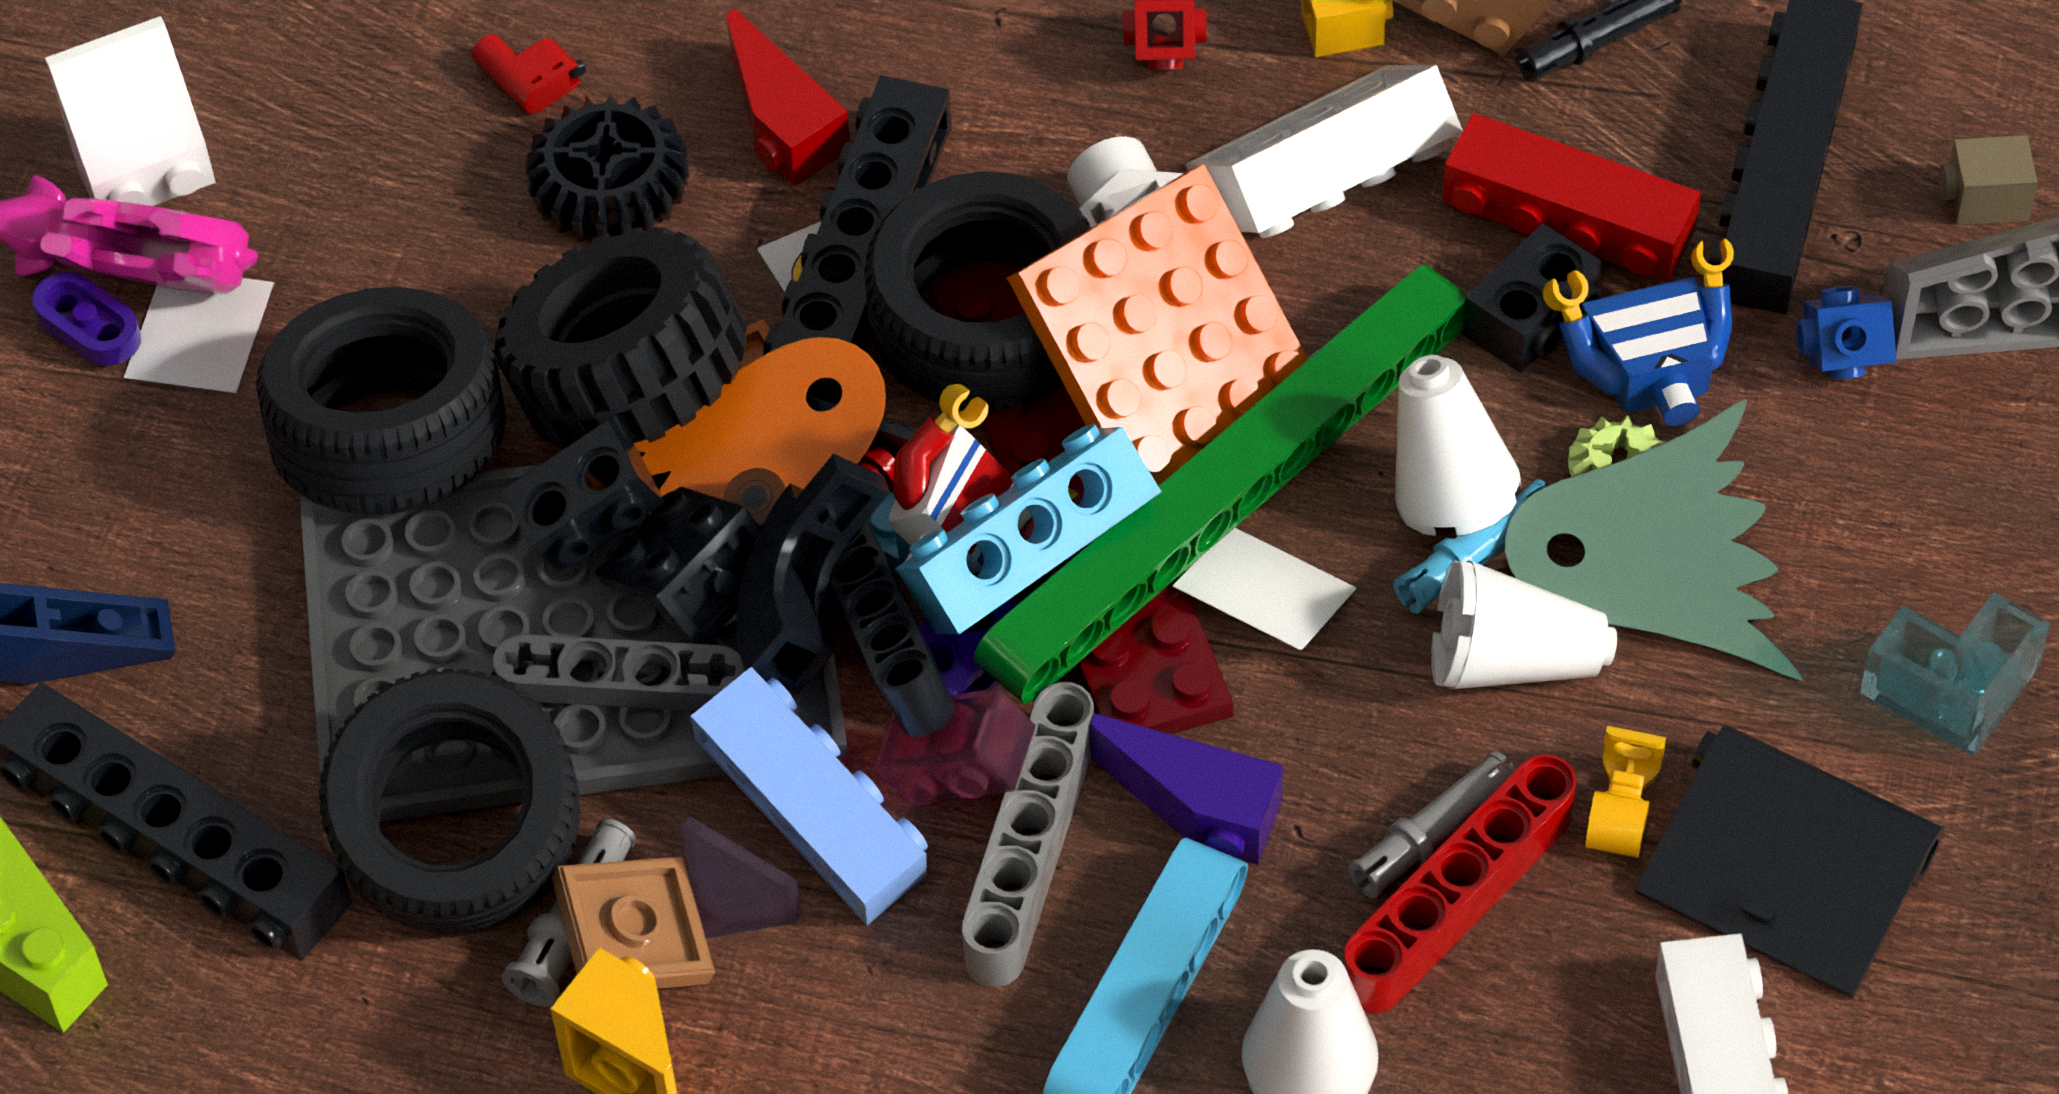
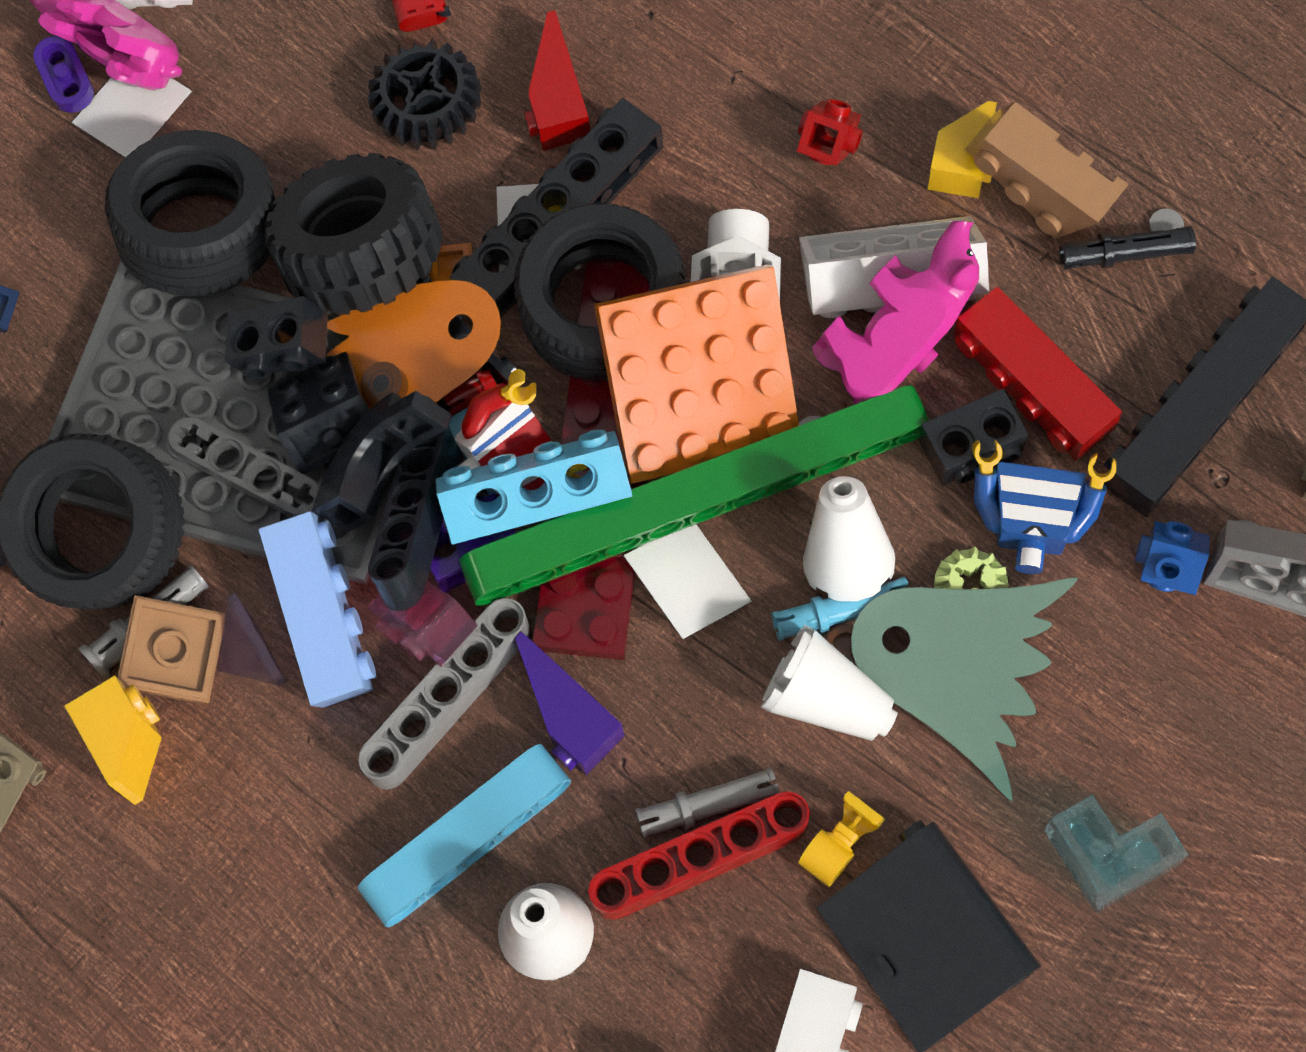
camera: 30 degrees right, 15 degrees up
(1391, 192) = (912, 321): none -> dark pink animal

